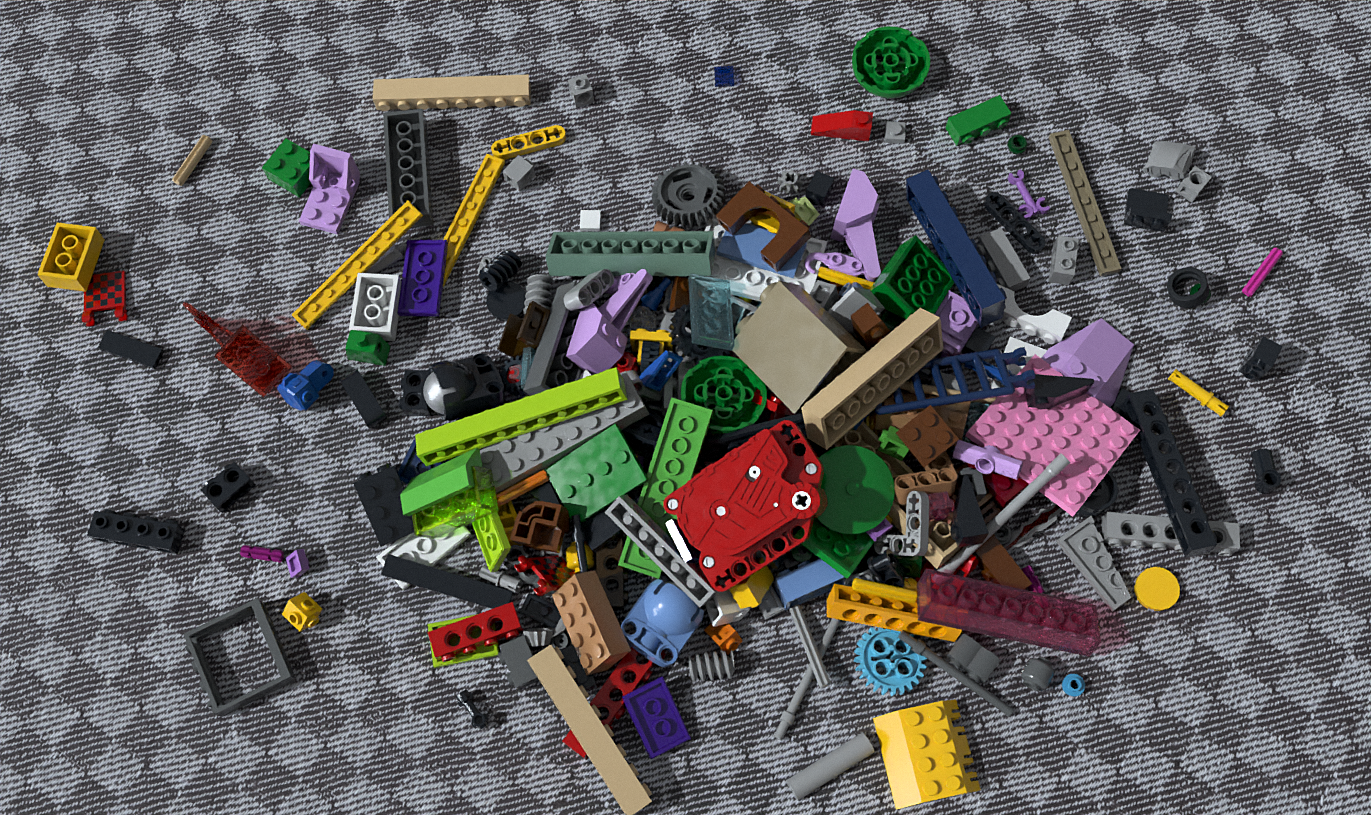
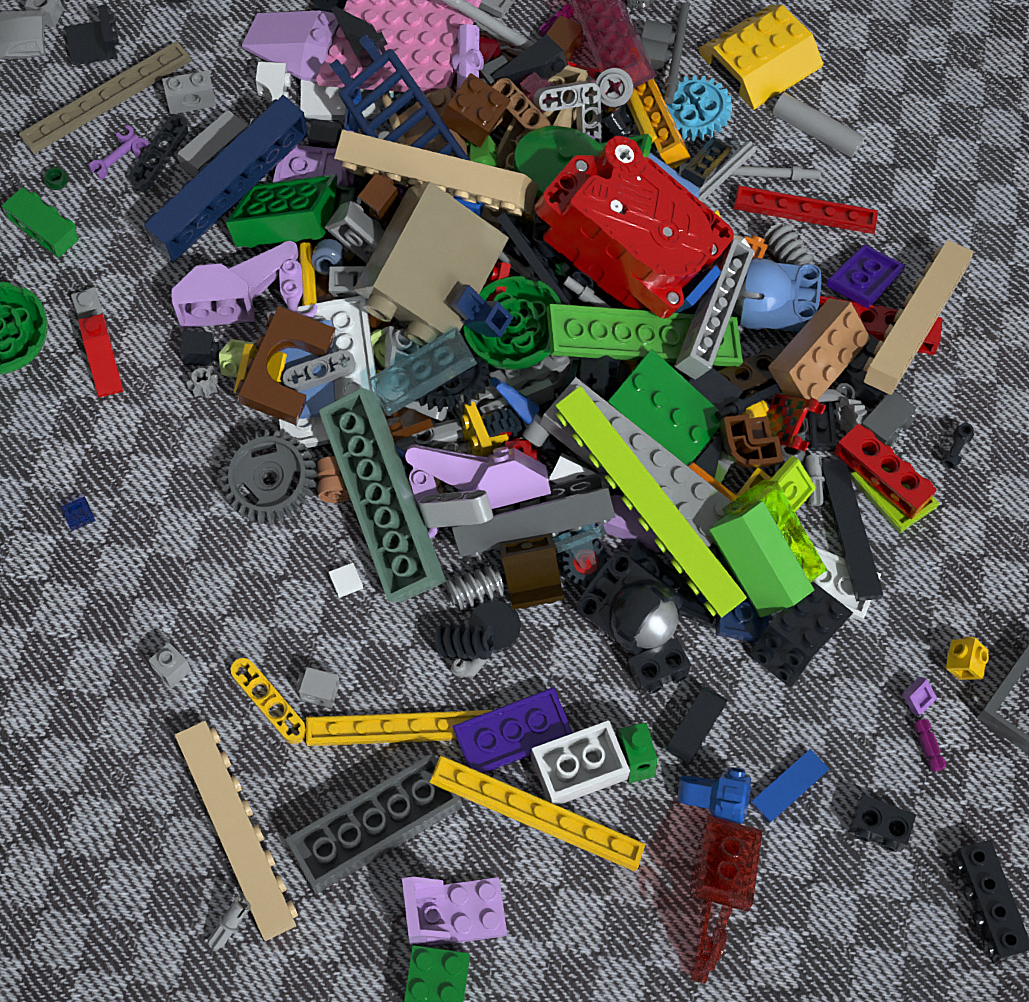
camera: 120 degrees left, 5 degrees down
(290, 442) = (789, 786): none -> blue tile
(394, 67) = (229, 923): none -> light grey axle
(735, 368) = (480, 315): none -> dark blue brick
(746, 257) = (334, 358): none -> light grey beam
(748, 708) = (806, 209): none -> red tile
(820, 632) = (706, 162): none -> black plate
(909, 570) = (625, 89): none -> light grey gear

